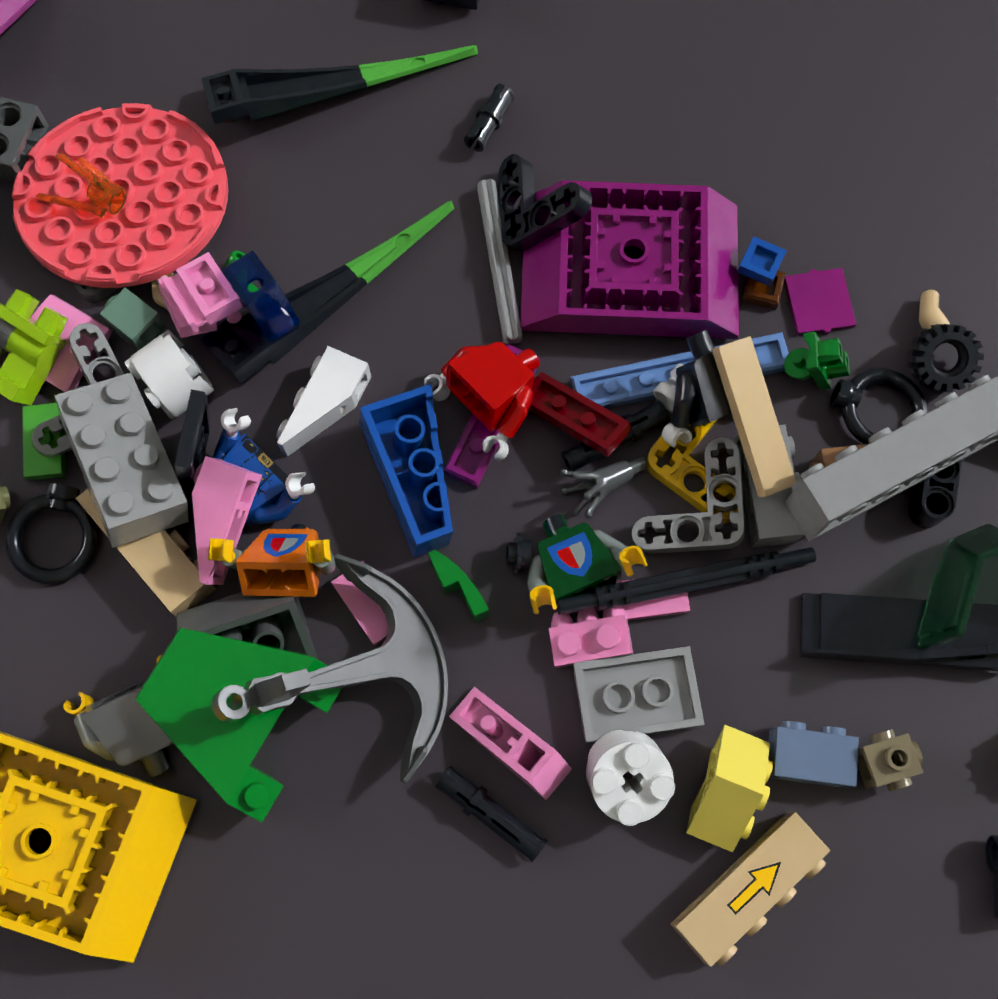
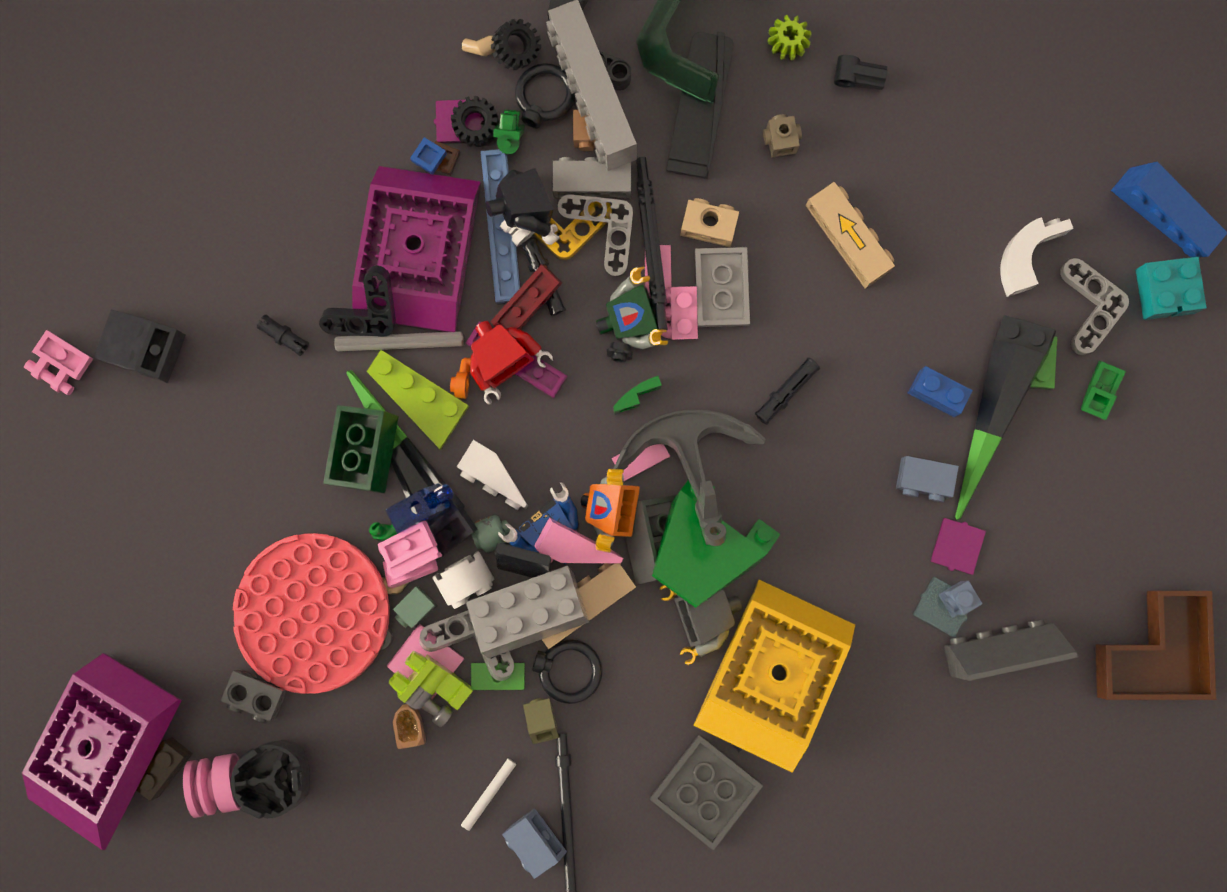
camera: 80 degrees left, 10 degrees up
(102, 191) = (315, 619): clear orange plant -> none
(247, 399) = (487, 534): none -> sand green head
(278, 90) = (240, 493): black plate -> none
(340, 222) = (361, 449): none -> dark green brick
(410, 463) = (551, 417): blue wedge -> none
(421, 299) = (423, 401): none -> lime wing
(446, 342) = (461, 382): none -> orange plate
(511, 743) = (743, 373): bright pink slope -> none
(602, 481) = (575, 290): dark grey piece -> none
(634, 798) = (775, 299): white brick -> none
(720, 683) = (719, 234): none -> tan brick
(731, 789) = (789, 235): light yellow brick -> none
(754, 416) = (551, 180): tan tile -> none
(813, 756) = (774, 183): sand blue brick -> none
(828, 299) = (464, 110): none -> black tyre

